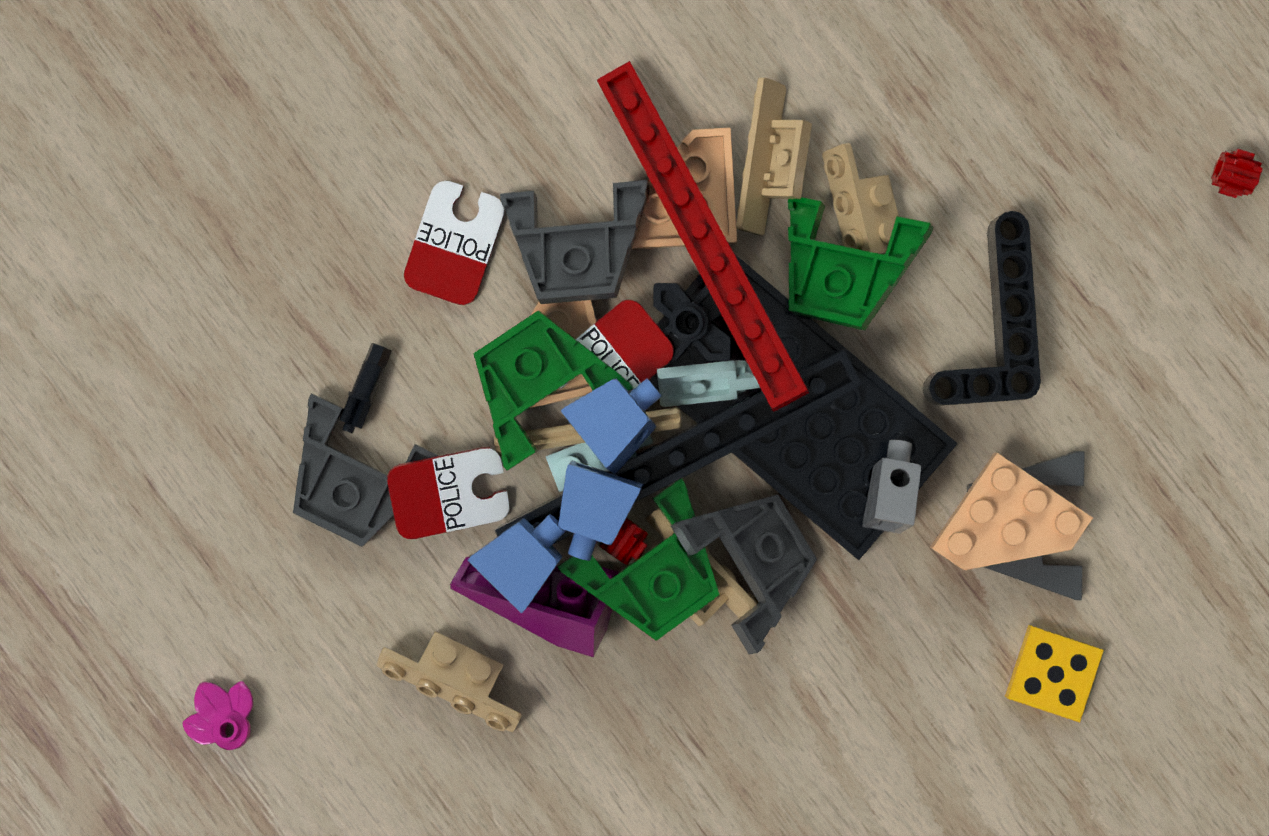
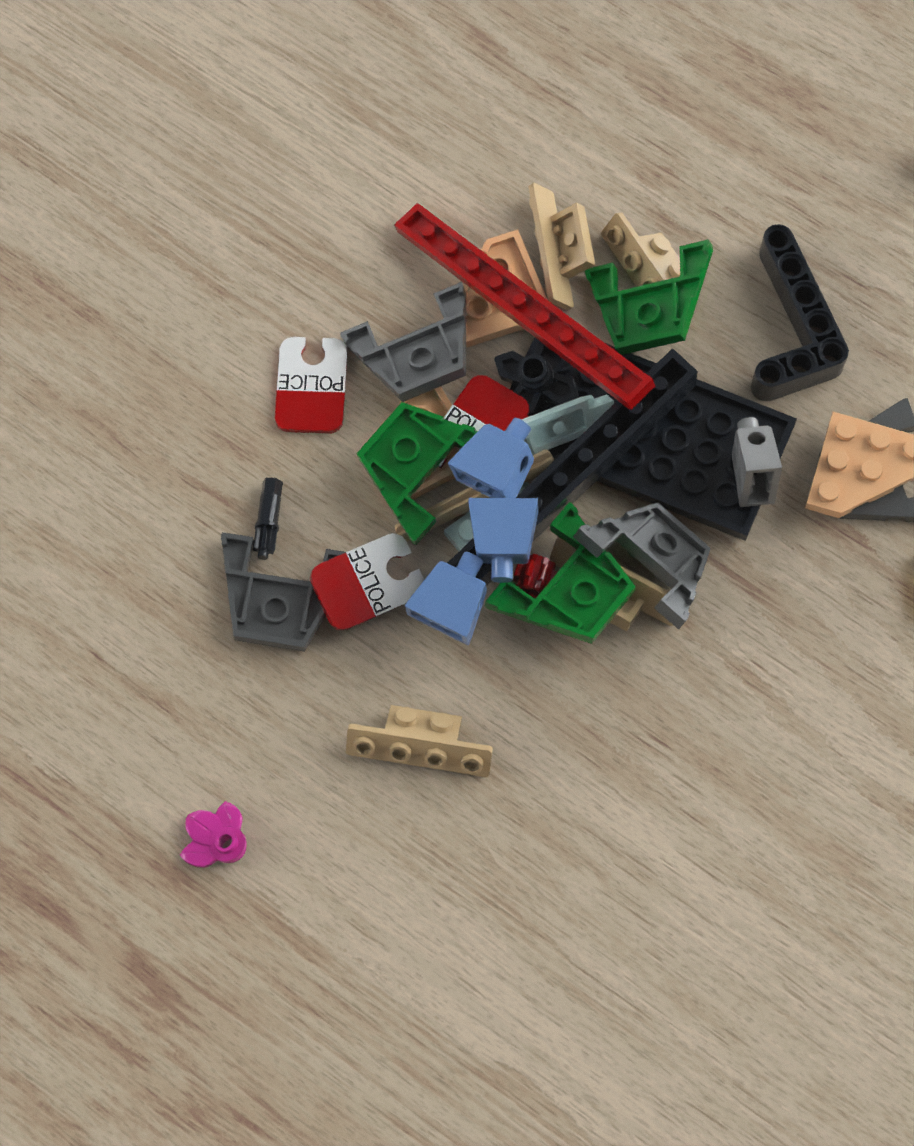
camera: 20 degrees left, 20 degrees down
(558, 613) = (497, 650): magenta wedge -> none

